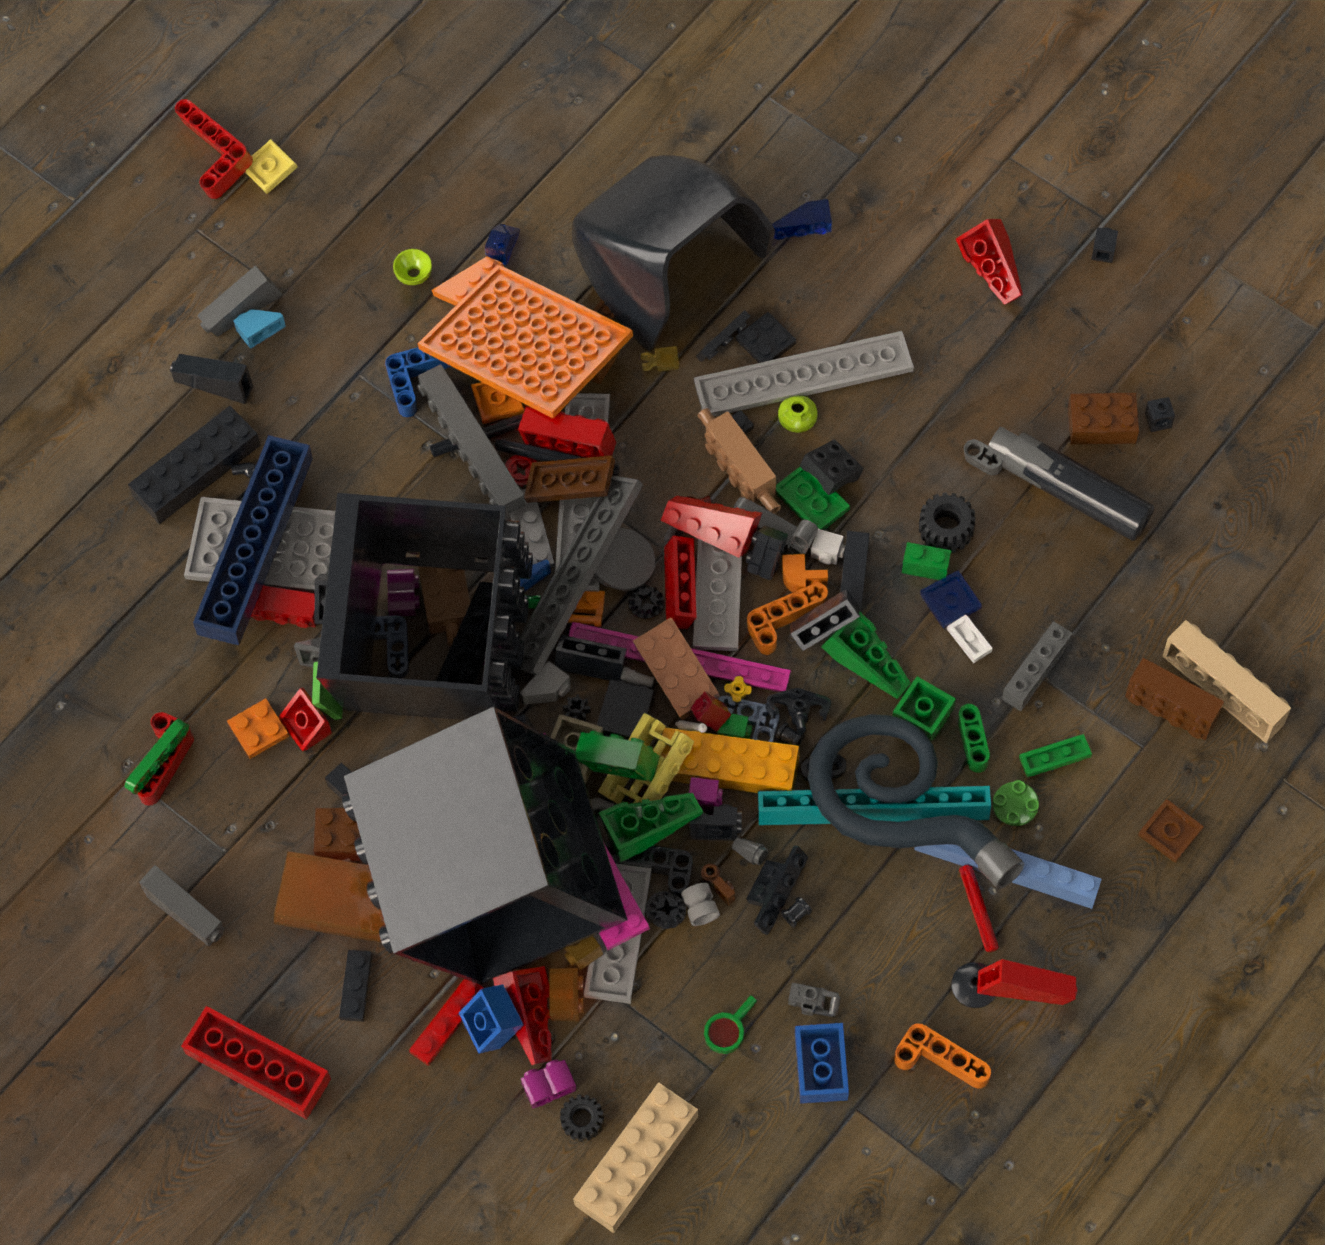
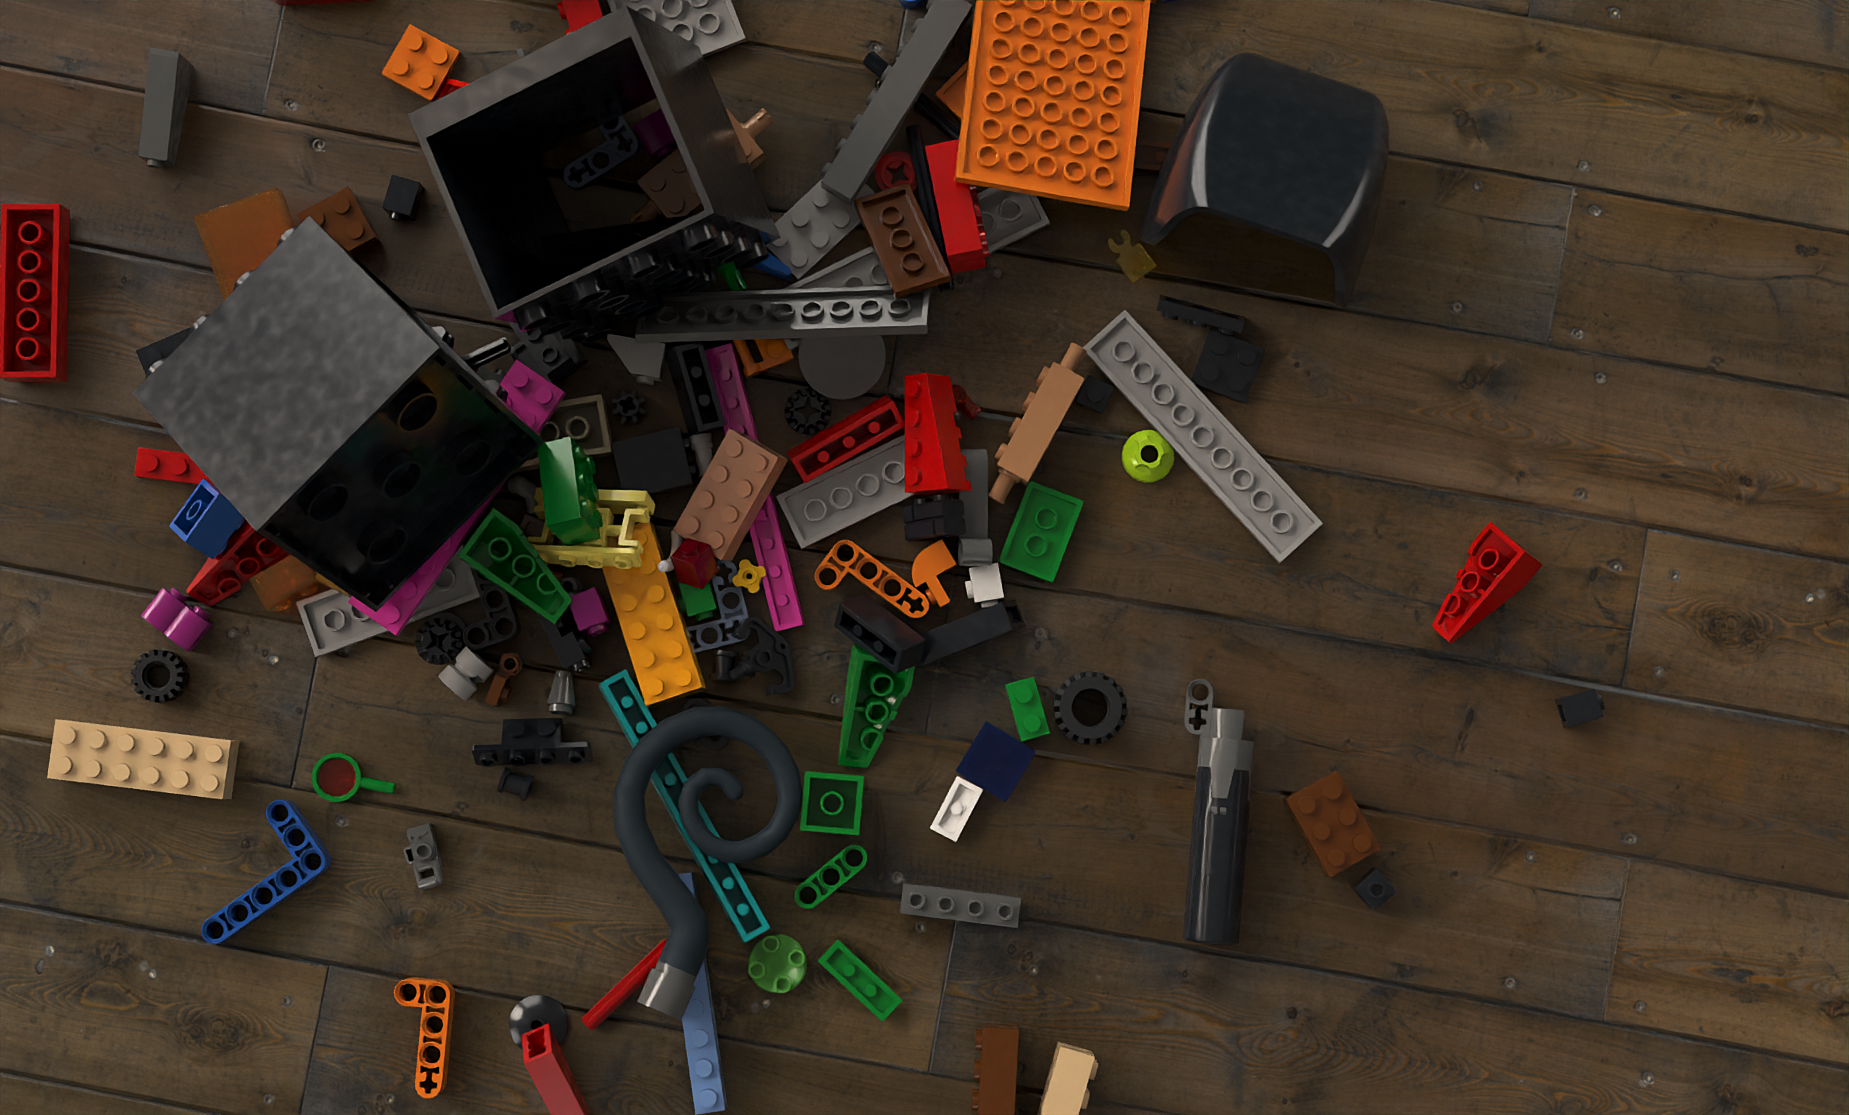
camera: 60 degrees right, 20 degrees up
(777, 1109) = (276, 881): none -> blue beam
(809, 218) = (1419, 329): clear blue slope -> none
(821, 1063) = (349, 904): blue brick -> none
(831, 466) = (1091, 535): black brick -> none

